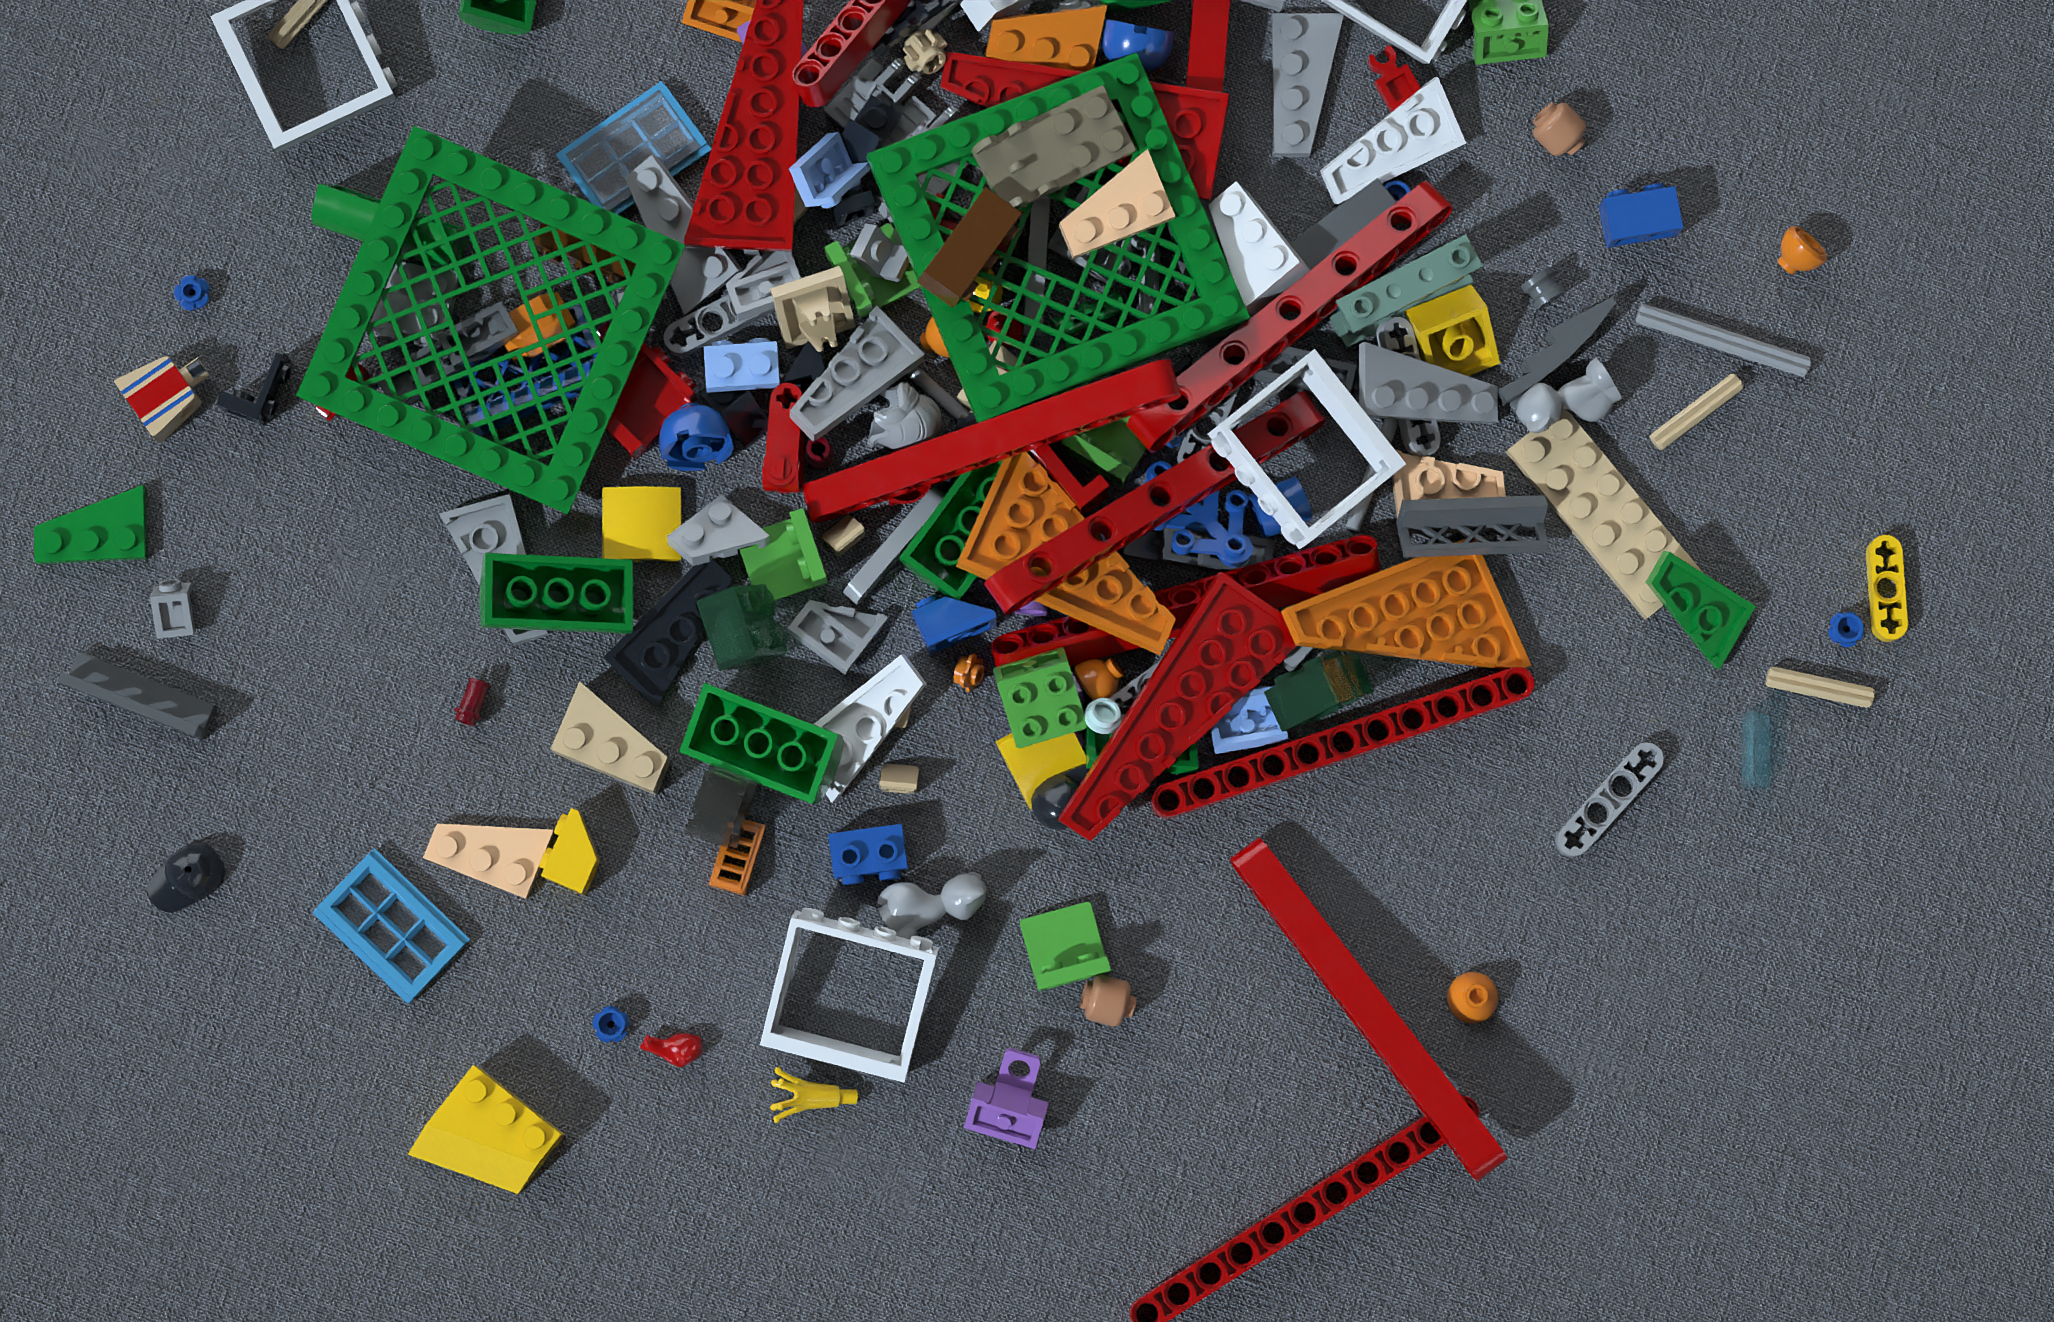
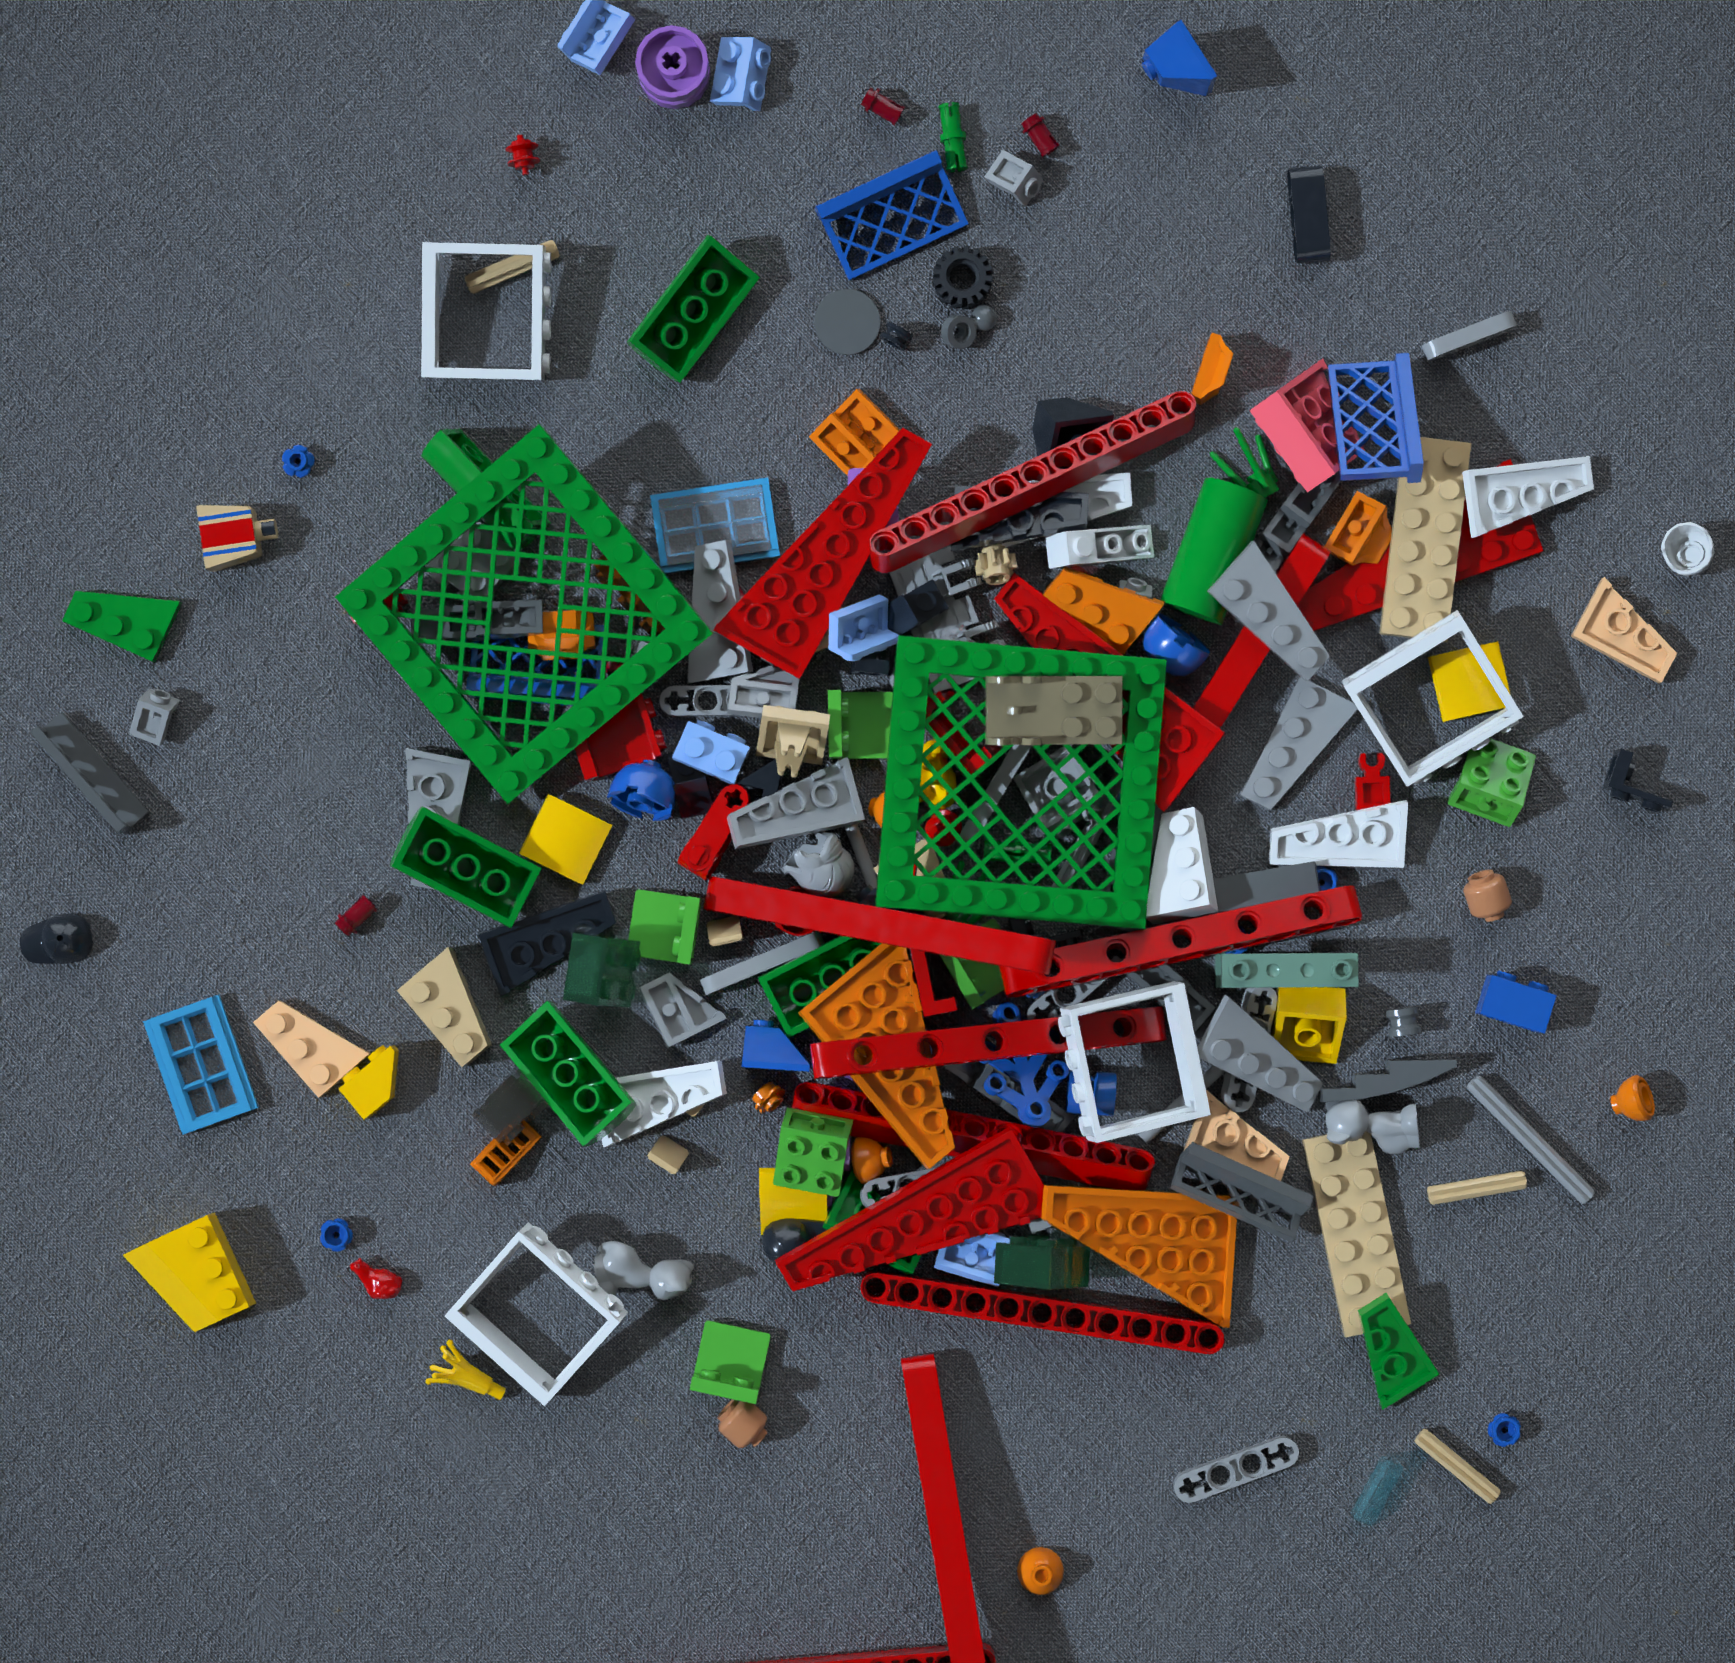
camera: 40 degrees right, 5 degrees up
(243, 405) = (292, 575): black bracket -> none
(716, 533) = (621, 878): light grey wing -> none
(815, 460) = (741, 863): dark red pin -> none
(868, 853) = (611, 1204): blue brick -> none
(879, 254) = (870, 717): light grey bracket -> none
(970, 248) = (941, 761): reddish brown brick -> none
(1008, 1108) = (618, 1467): medium lavender piece -> none
(1102, 716) = (855, 1194): light aqua plate -> none
(1119, 209) = (1082, 786): light nougat wing -> none
(1875, 599) = (1549, 1400): yellow beam -> none

